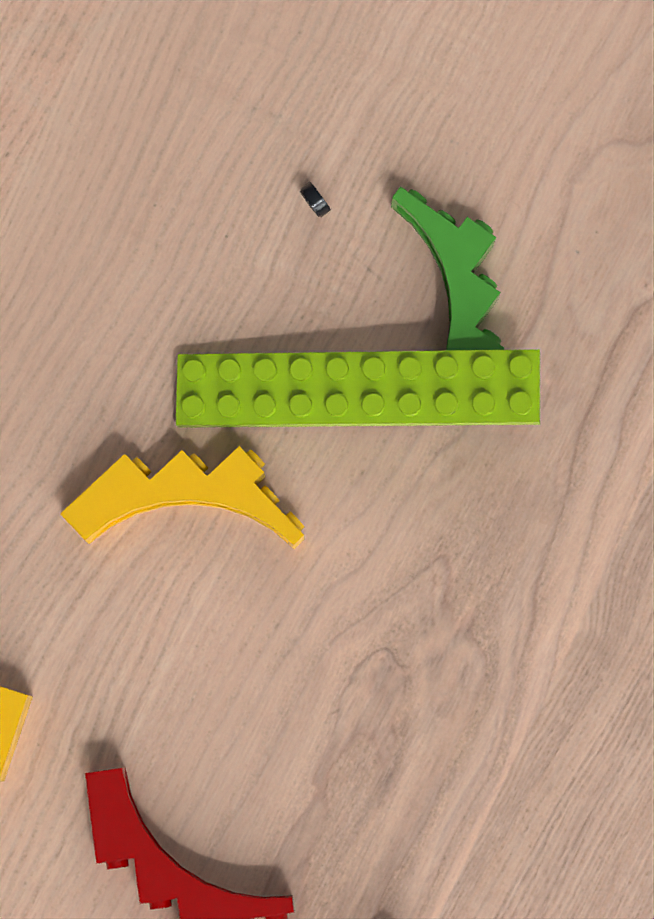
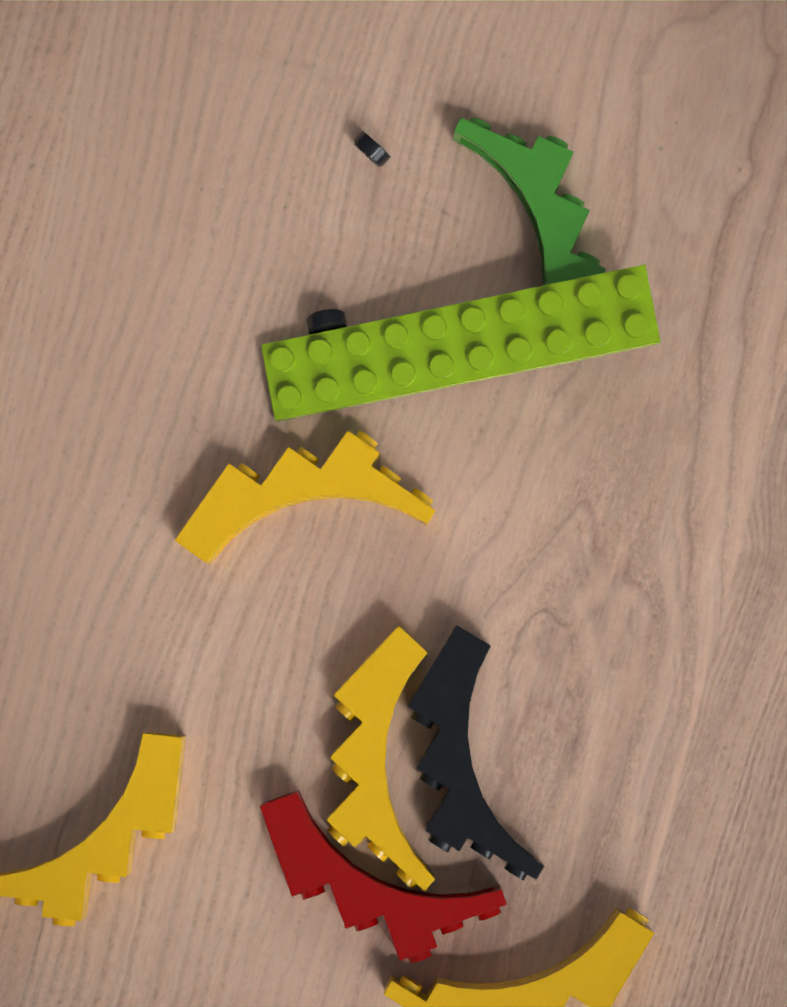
camera: 10 degrees left, 5 degrees up
(184, 798) = (368, 809): none -> yellow arch
(241, 344) = (326, 320): none -> black tile
(267, 768) = (463, 812): none -> black arch

